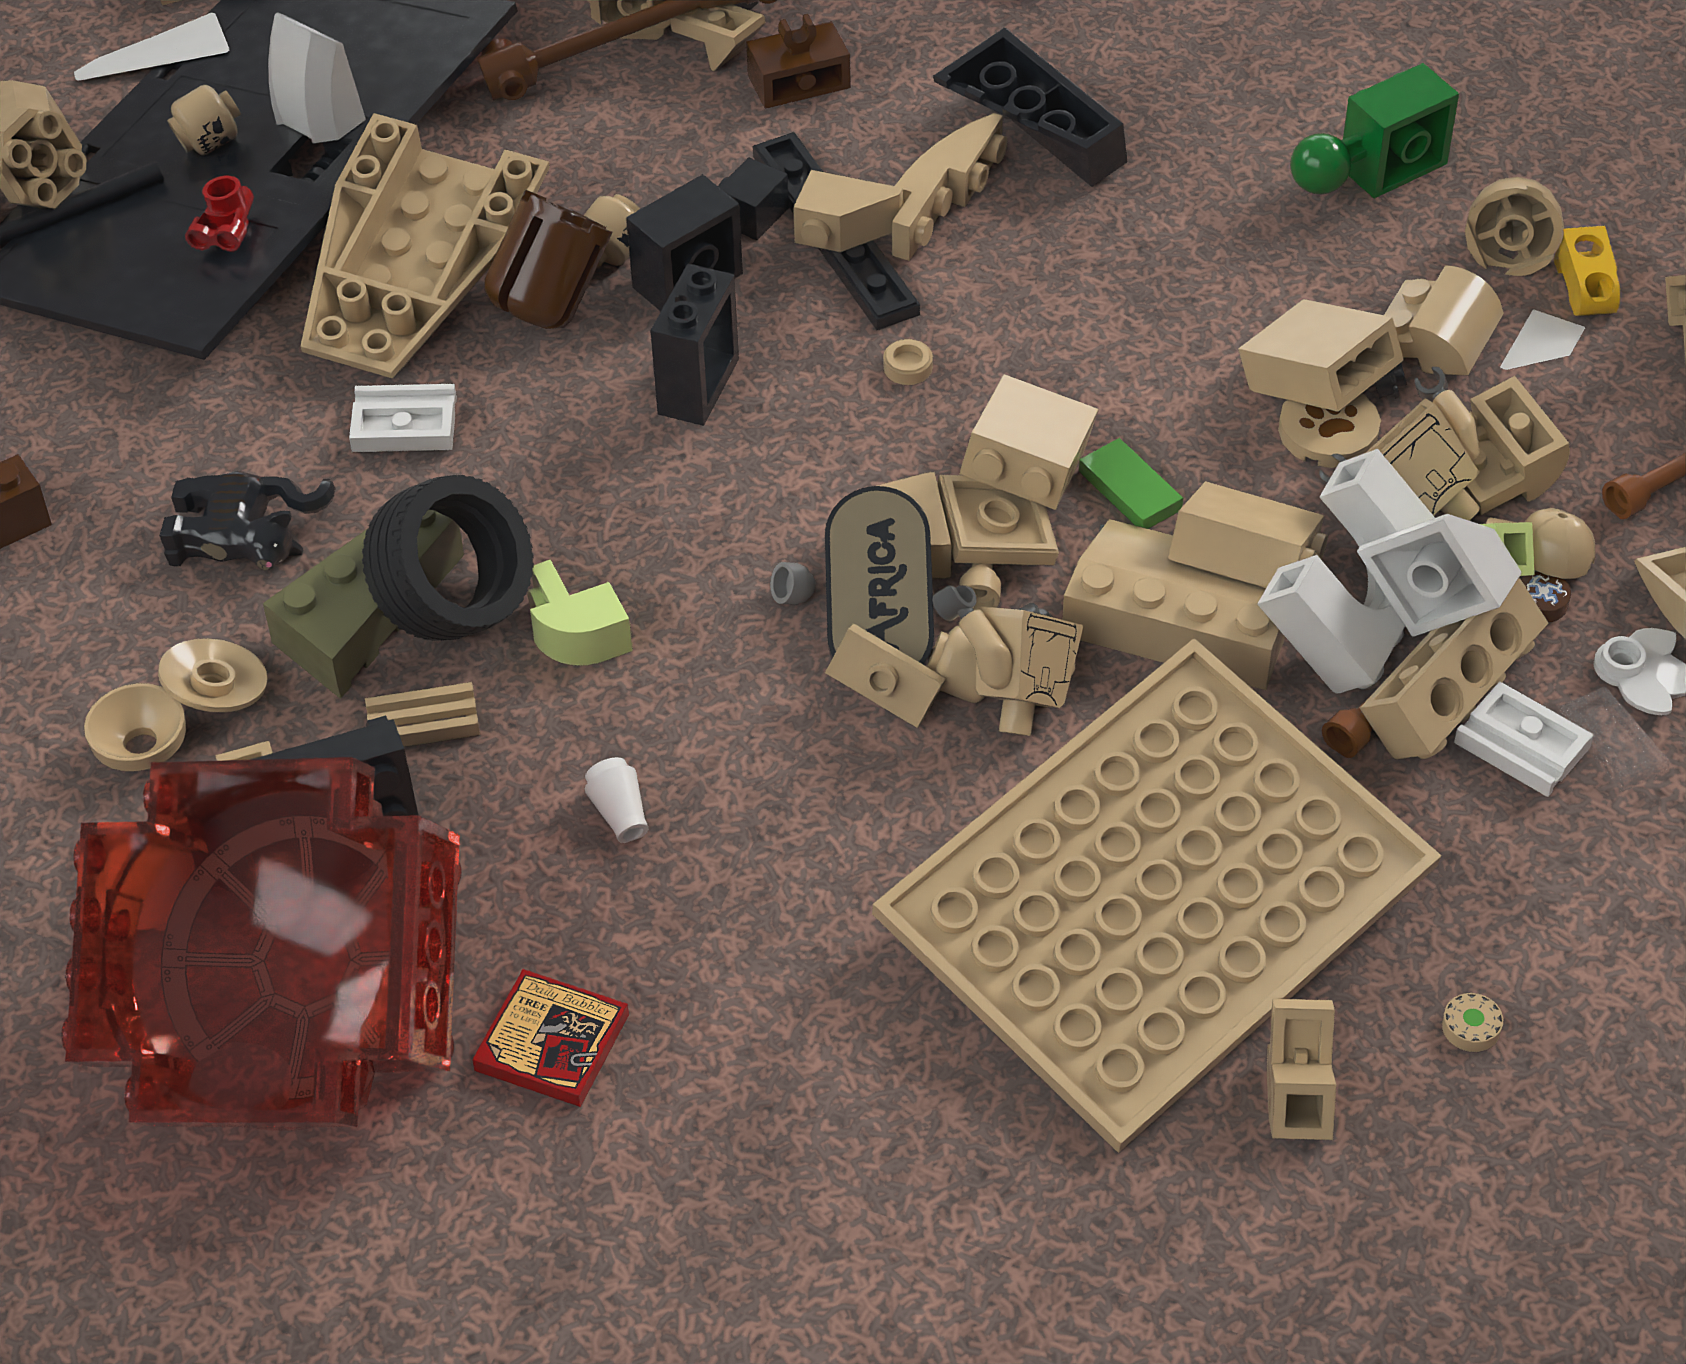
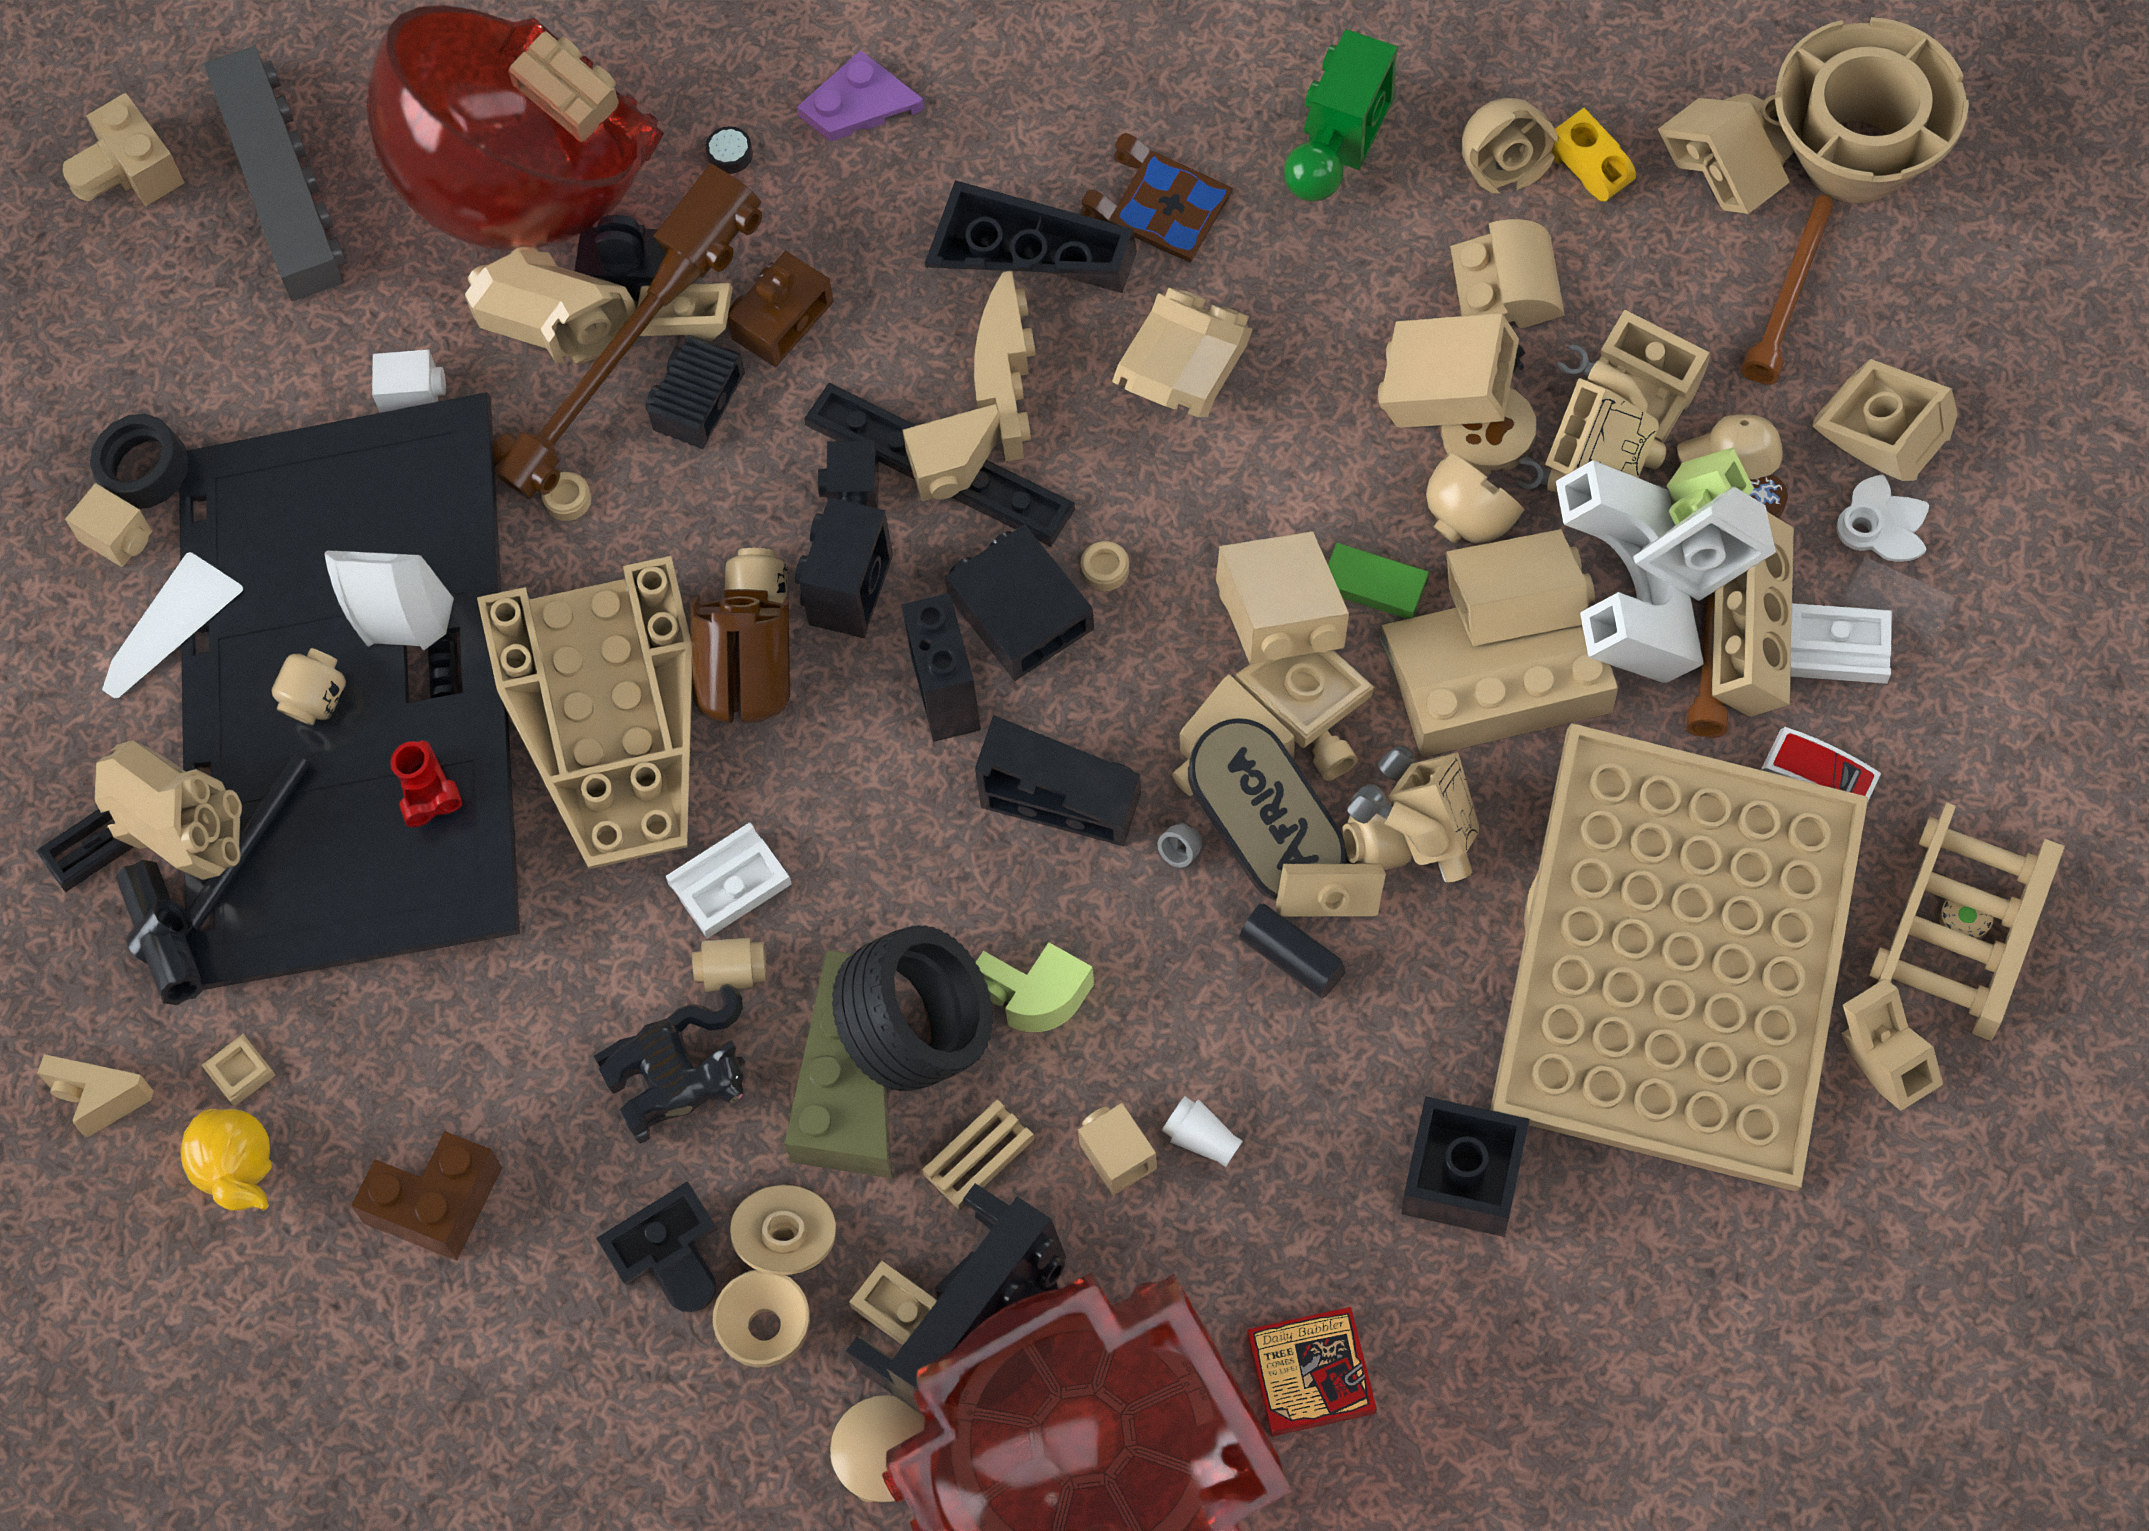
camera: 30 degrees left, 15 degrees up
(109, 628) = (663, 1243): none -> black brick
(354, 473) = (730, 962): none -> tan brick
(524, 113) = (569, 498): none -> tan tile
(534, 770) = (1116, 1147): none -> tan brick
(682, 86) = (694, 391): none -> black brick
(718, 476) = (1055, 784): none -> black wedge
(810, 346) = (1019, 601): none -> black brick
(816, 708) = (1292, 950): none -> black brick
(818, 945) = (1465, 1166): none -> black brick
(1099, 234) = (1183, 352): none -> tan brick
(1183, 143) = (1163, 203): none -> reddish brown flag
(1257, 458) = (1469, 503): none -> tan cylinder
(1430, 819) = (1819, 763): none -> red slope
(1476, 1070) = (2017, 914): none -> tan fence
(1542, 340) = (1592, 241): white sticker -> none

